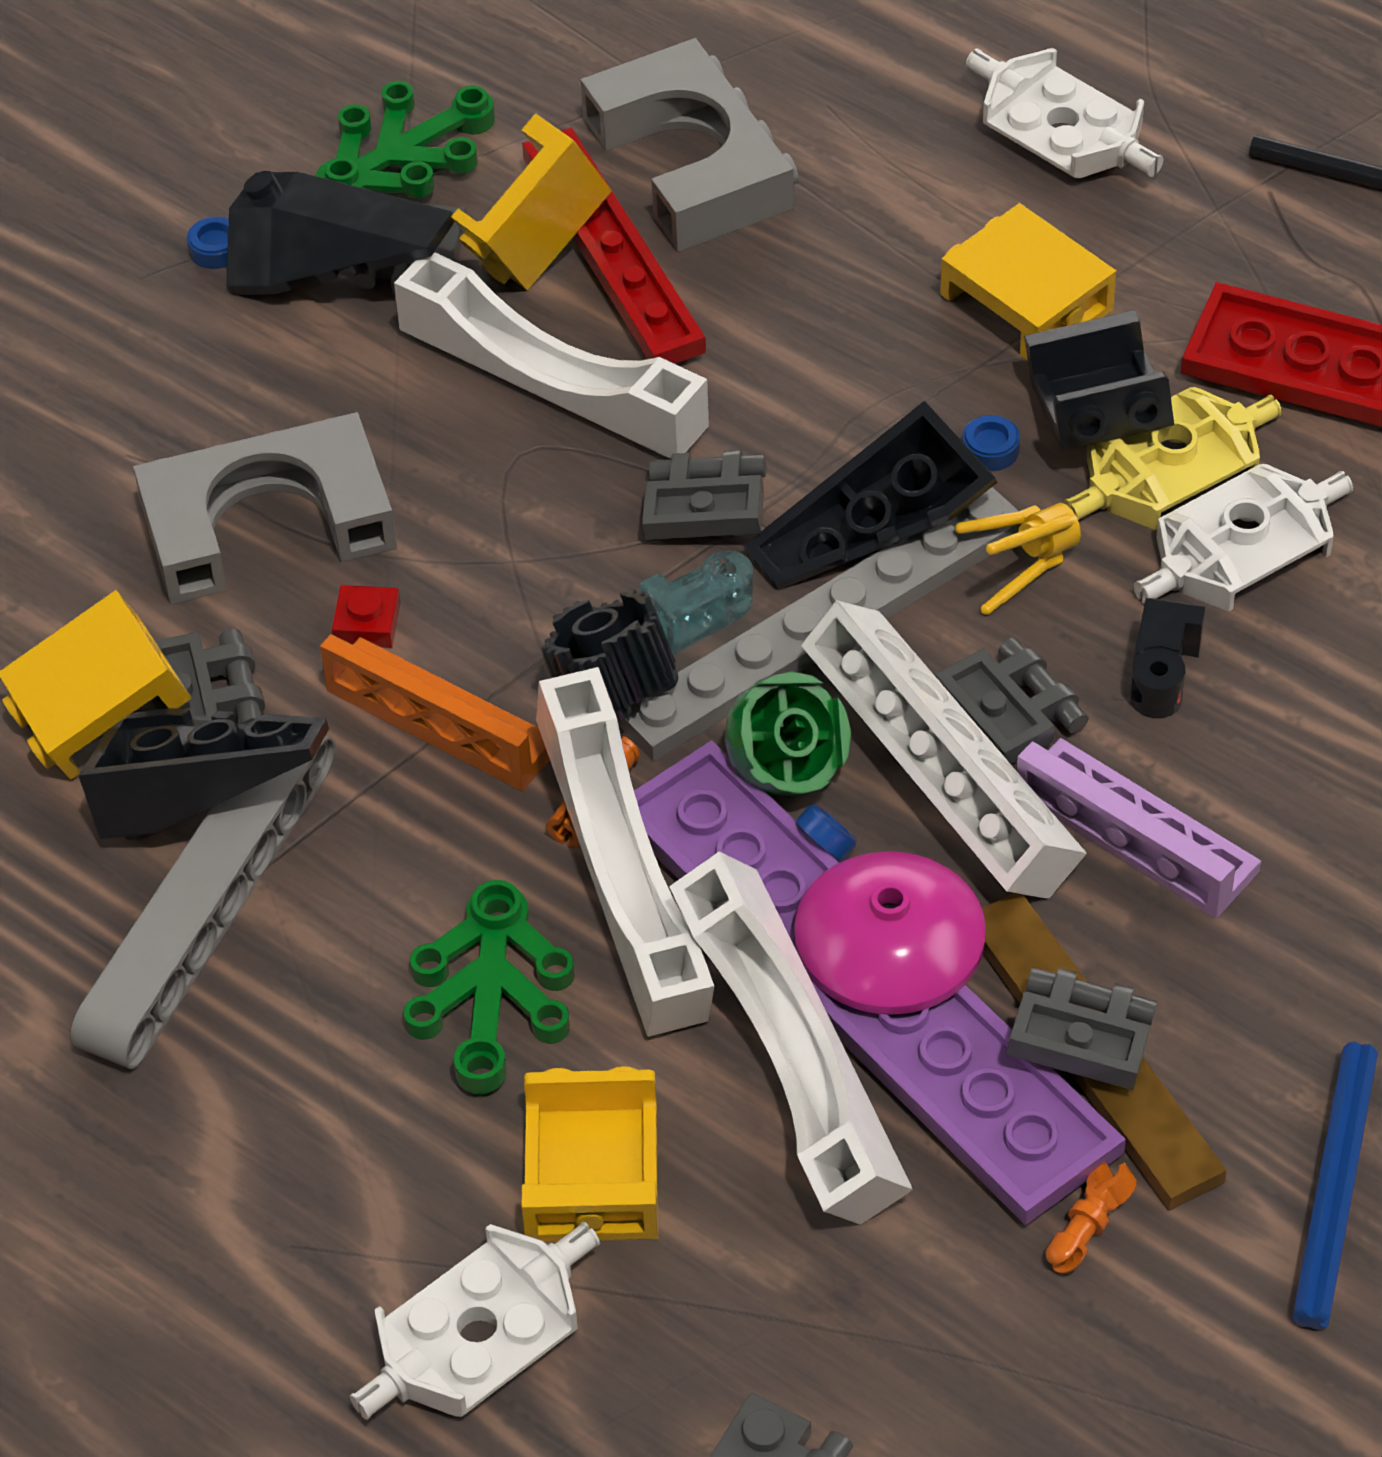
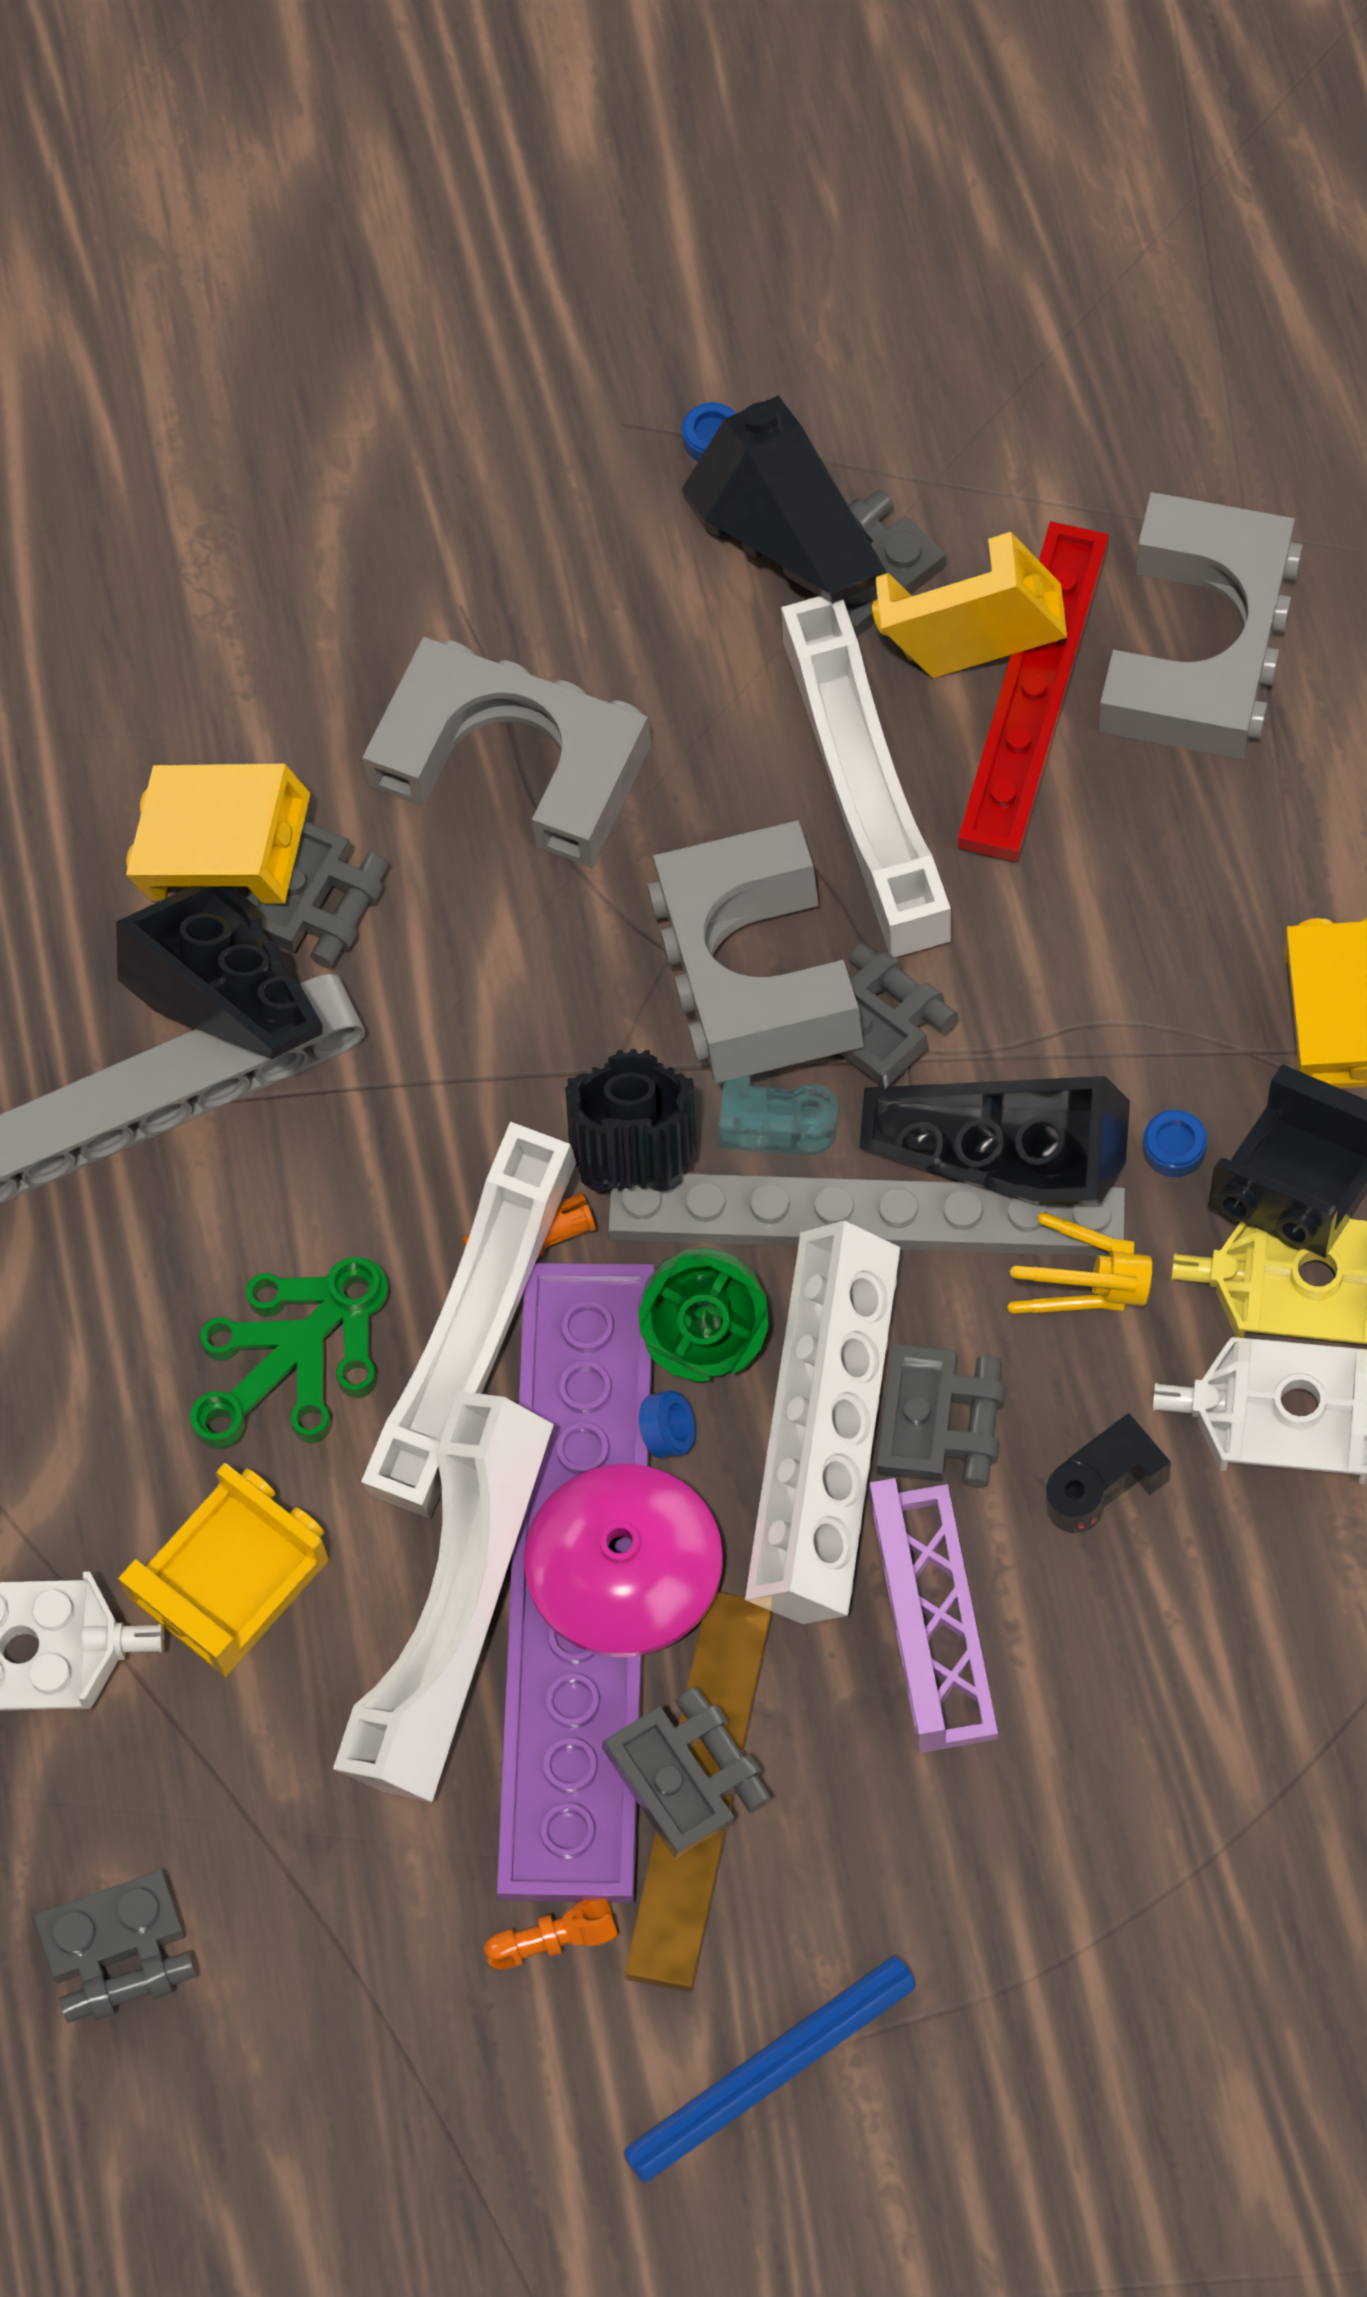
camera: 45 degrees right, 15 degrees up
(367, 614) = (503, 920): red plate -> none
(434, 710) = (471, 1045): orange fence -> none
(470, 113) = (951, 443): green plant -> none
(619, 541) = (741, 1019): none -> light grey arch

